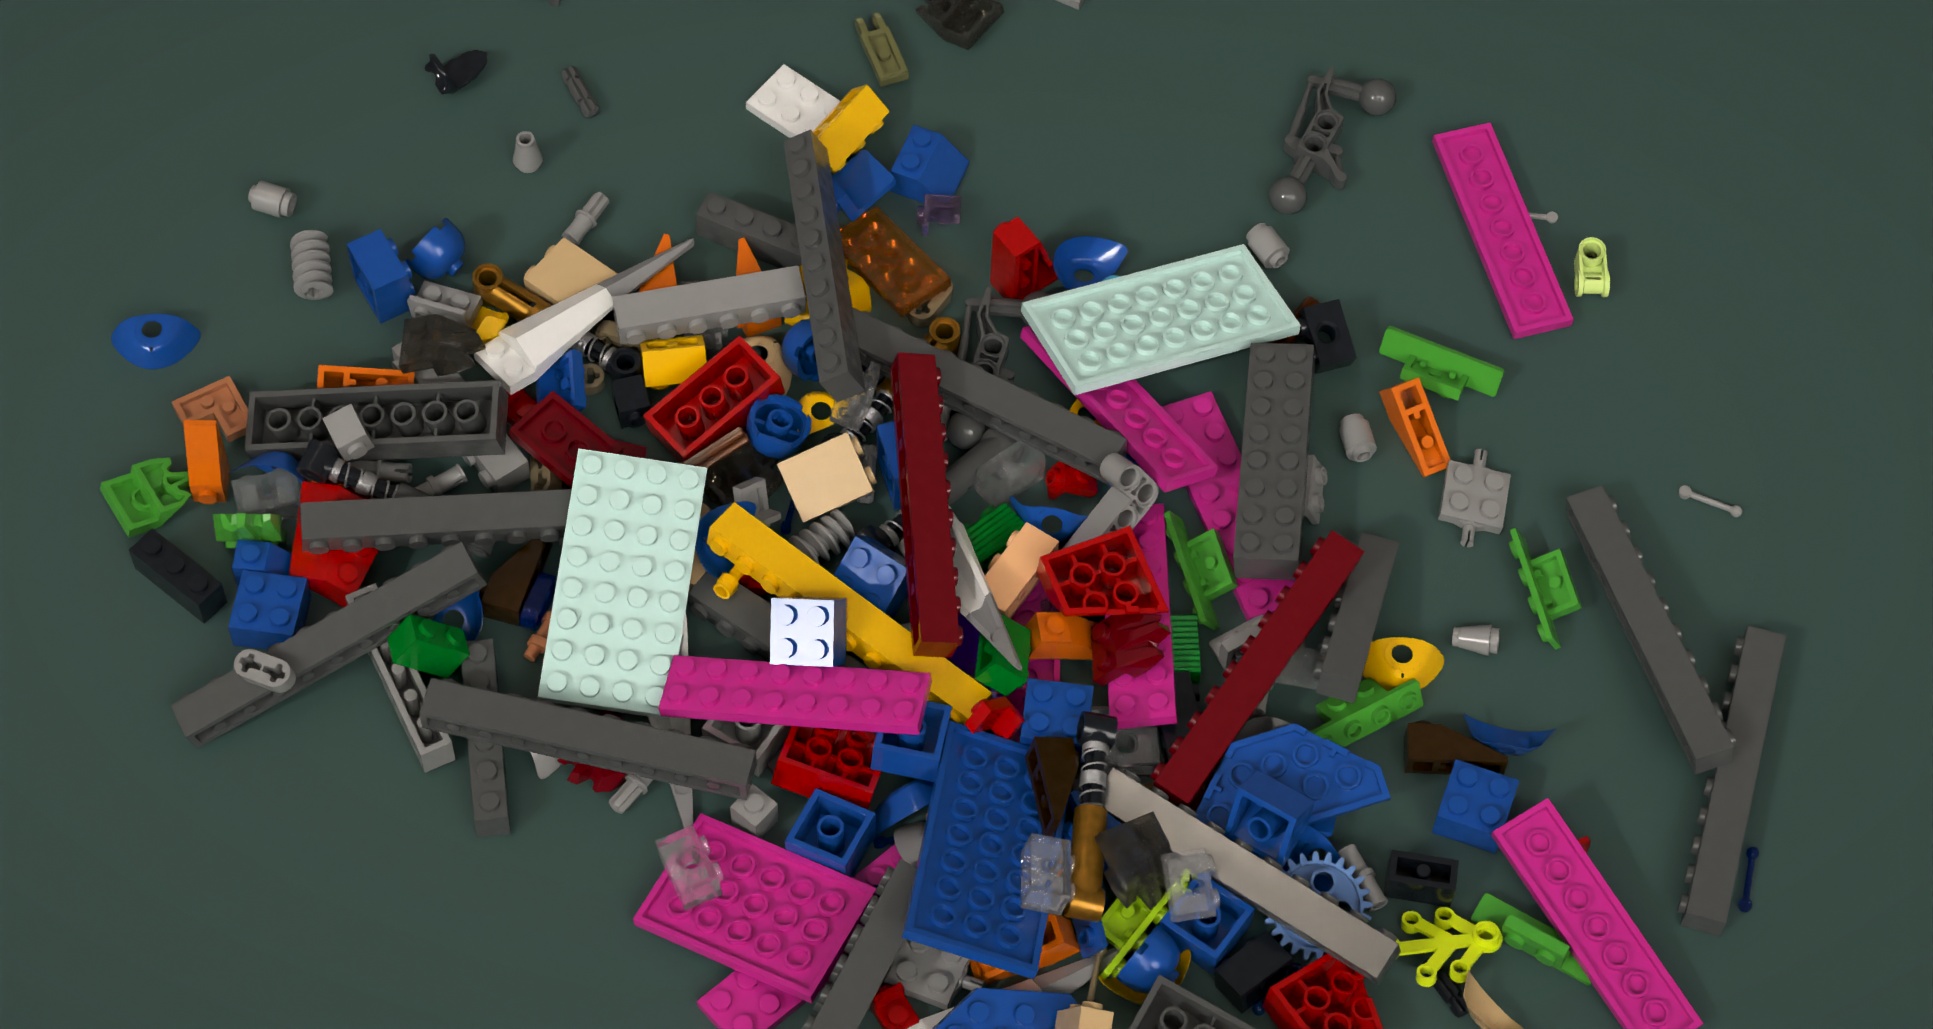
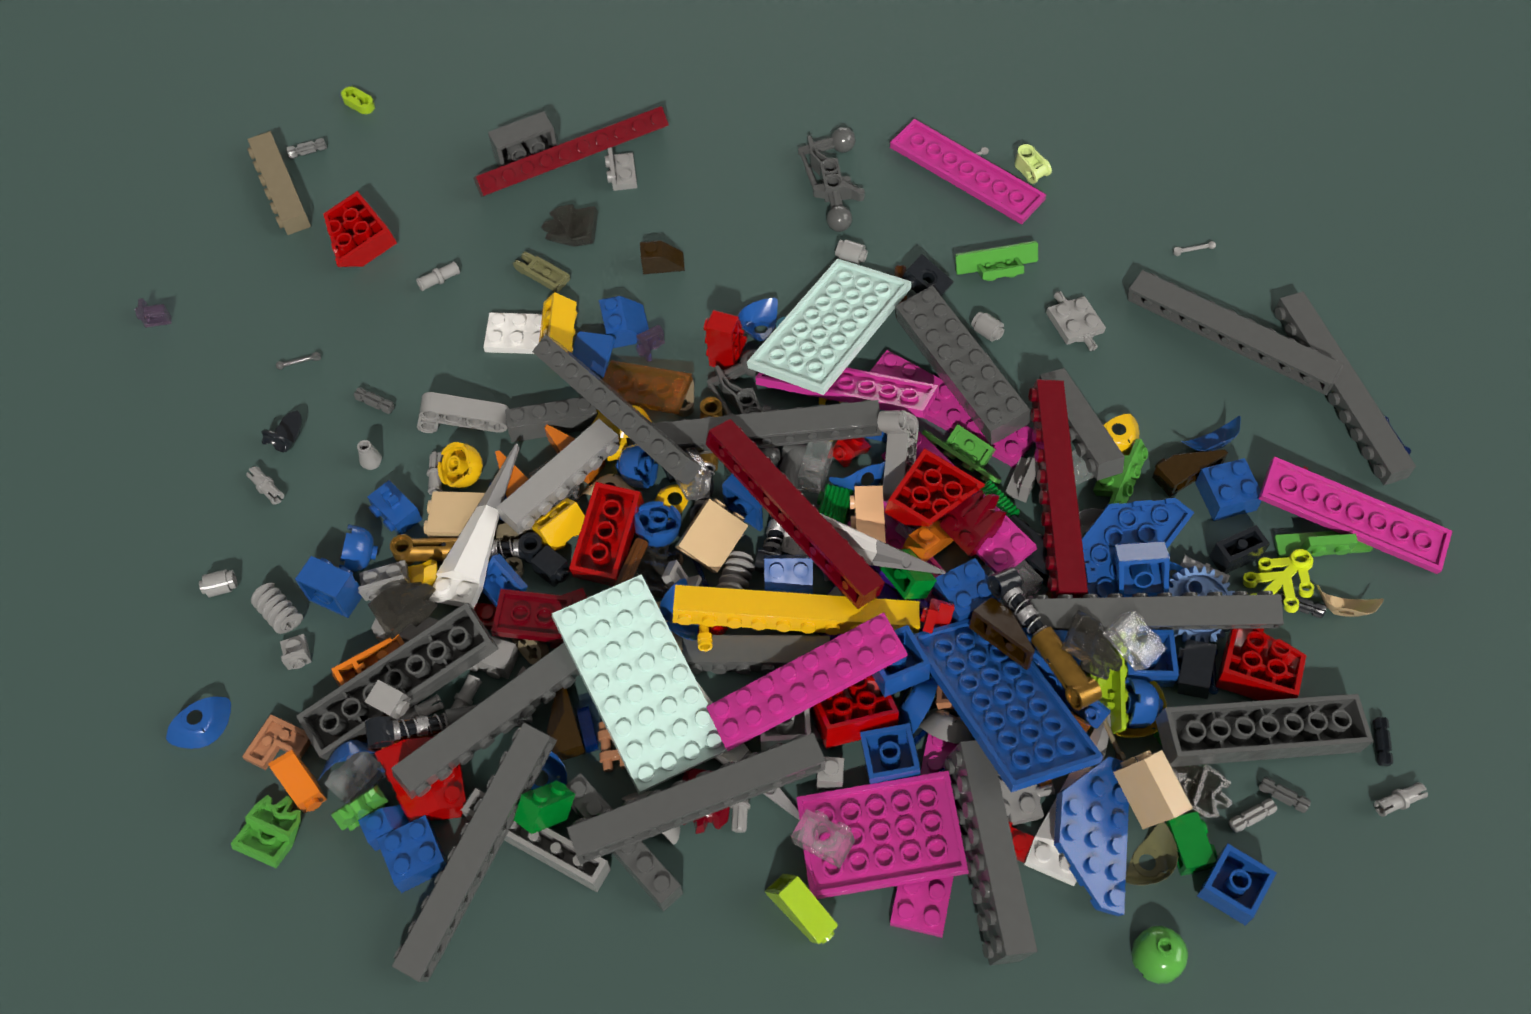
camera: 30 degrees left, 0 degrees up
(178, 575) = (330, 871): black brick -> none
(262, 677) = (444, 893): light grey beam -> none
(300, 326) = (295, 652): none -> light grey bracket
(395, 119) = (265, 485): none -> light grey pin
(512, 231) = (394, 508): none -> blue brick
(615, 227) = (460, 465): none -> yellow cylinder
(616, 927) = (802, 908): none -> lime slope
(660, 164) = (460, 412): none -> light grey beam
(808, 631) = (784, 635): brick -> none
(1032, 116) = (660, 258): none -> dark brown slope
(1046, 874) = (1054, 691): clear brick -> none
(1416, 425) = (1012, 299): orange slope -> none
(1478, 639) = (1147, 395): light grey cone -> none
(1550, 586) = (1158, 341): bright green bracket -> none

